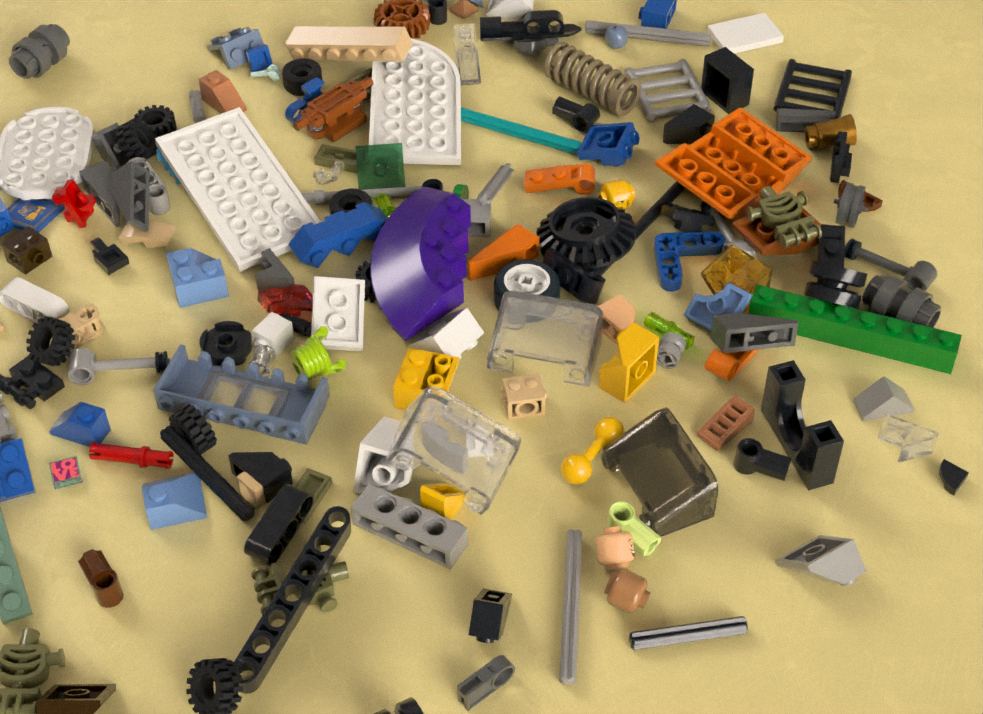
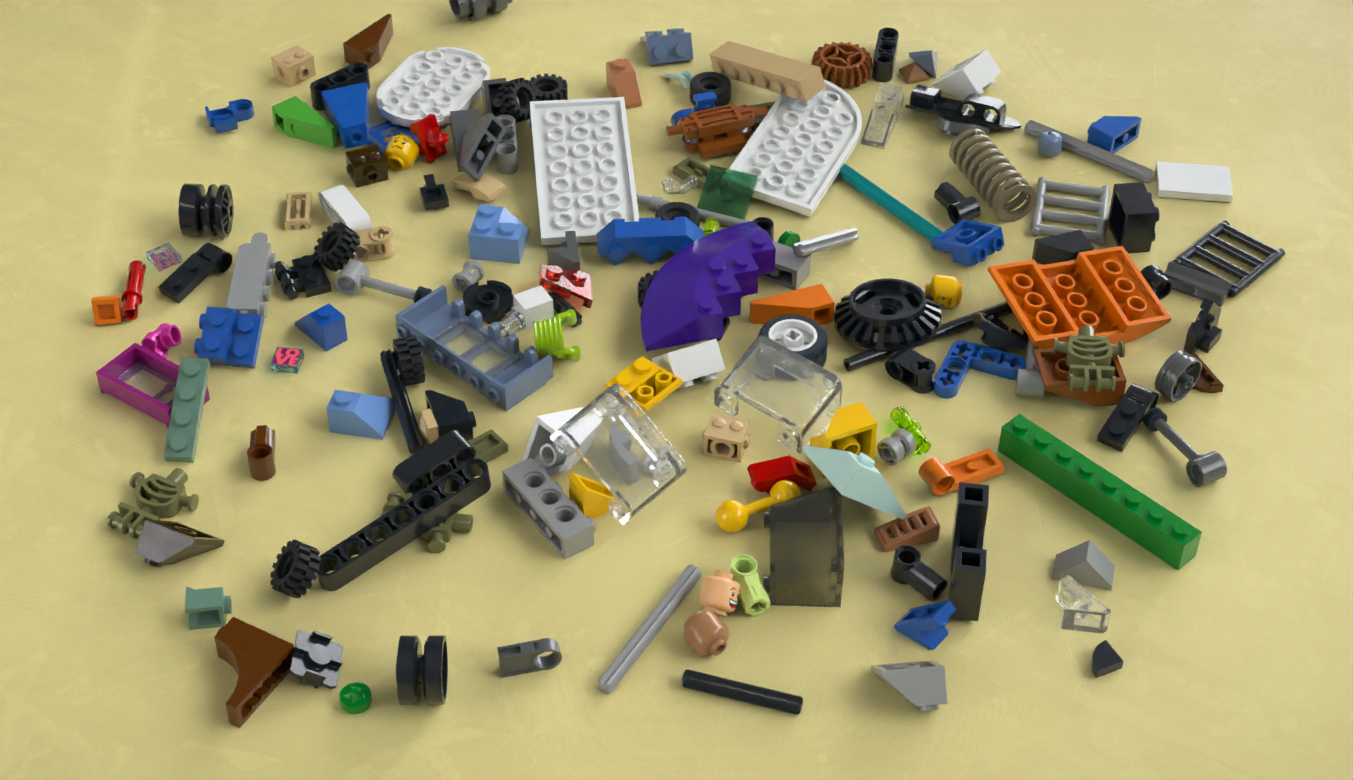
camera: 25 degrees right, 5 degrees down
(53, 225) = (401, 152): none -> yellow head
(141, 456) = (355, 368): red pin -> none
(192, 325) = (466, 275): none -> light grey bush
(197, 106) = (597, 86): light grey axle -> none
(259, 58) = (679, 60): blue plate -> none
(340, 308) = (602, 307): white tile -> none
(489, 615) = (568, 605): black slope -> none
(573, 279) = (848, 358): black plate -> none
(577, 176) = (916, 262): orange plate -> none
(589, 411) = (769, 472): none -> red slope
(616, 316) = (867, 392): light nougat slope -> none
(635, 273) = (912, 370): none -> black piece
(672, 393) = (856, 478): none -> light aqua slope
(727, 301) = (970, 427): medium blue tile -> none
(737, 268) = (1004, 398): clear yellow slope -> none
(752, 332) = (983, 455): dark grey slope -> none
(783, 128) = (1157, 280): none -> black wheel
(798, 502) = (926, 623): none -> blue slope
(824, 133) = (1225, 298): pearl gold plant -> none
(835, 284) = (1100, 441): black wheel -> none
(892, 299) = (1162, 480): dark grey piece -> none

